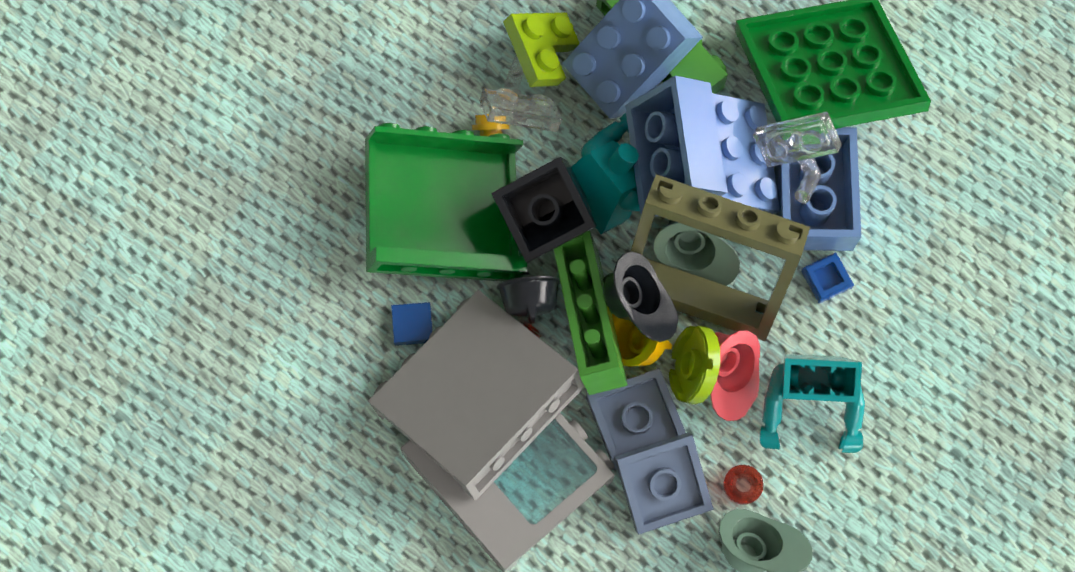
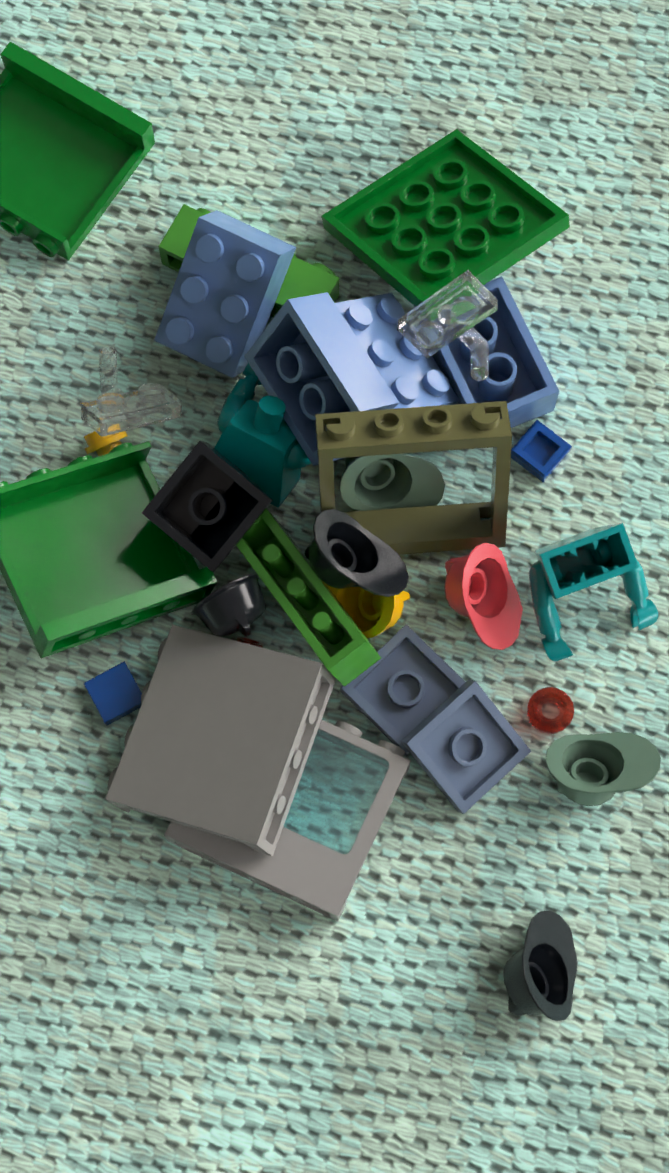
camera: 20 degrees left, 0 degrees up
(536, 42) = (117, 328): lime plate -> none
(695, 365) = (443, 604): lime tile -> none

